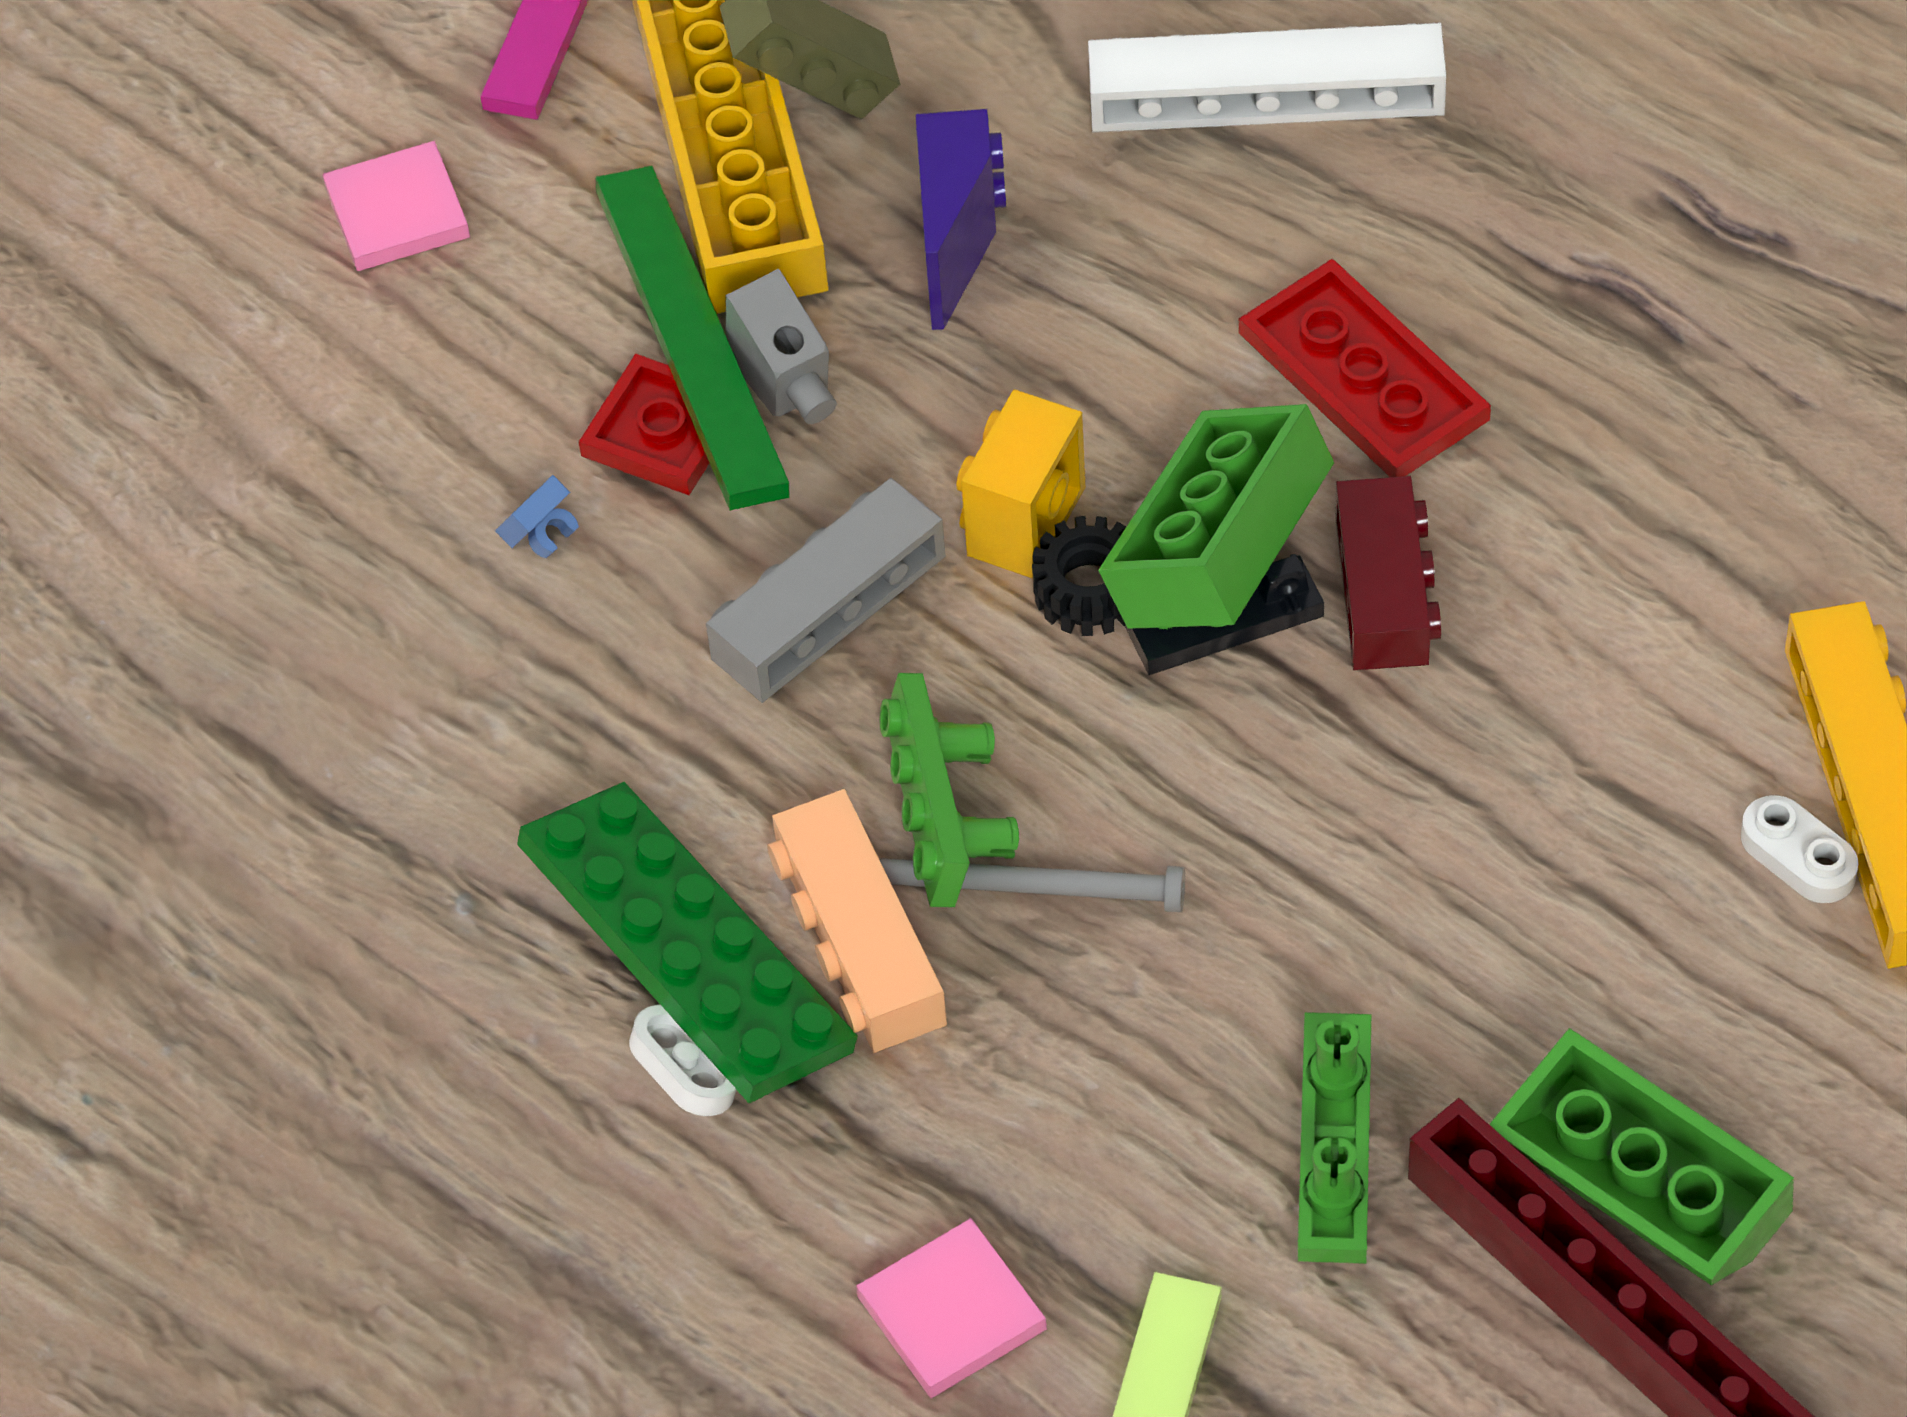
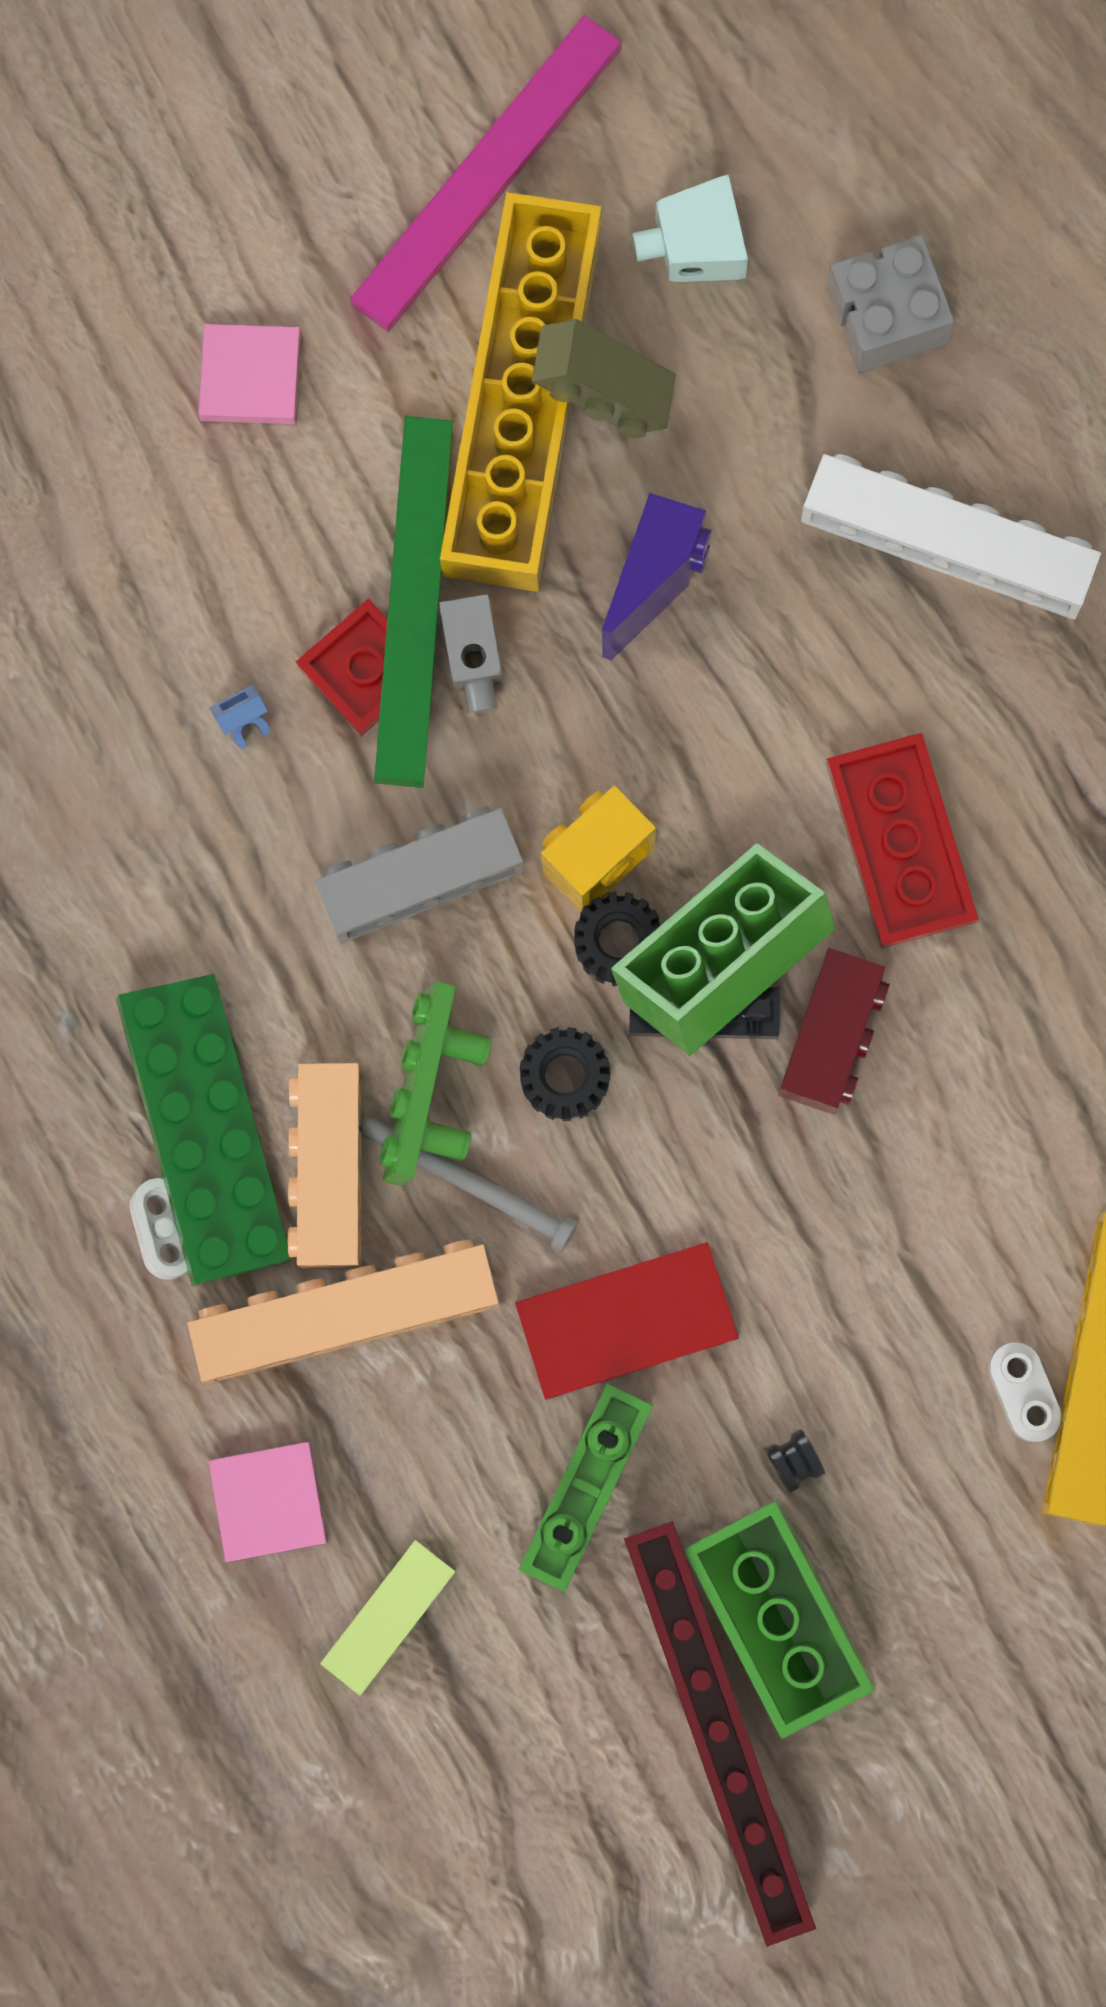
camera: 25 degrees right, 25 degrees up
(948, 1064) = (343, 1313): none -> light nougat brick
(1093, 698) = (558, 1044): none -> black tyre
(1293, 952) = (626, 1321): none -> red tile
(1573, 1003) = (795, 1461): none -> black wheel

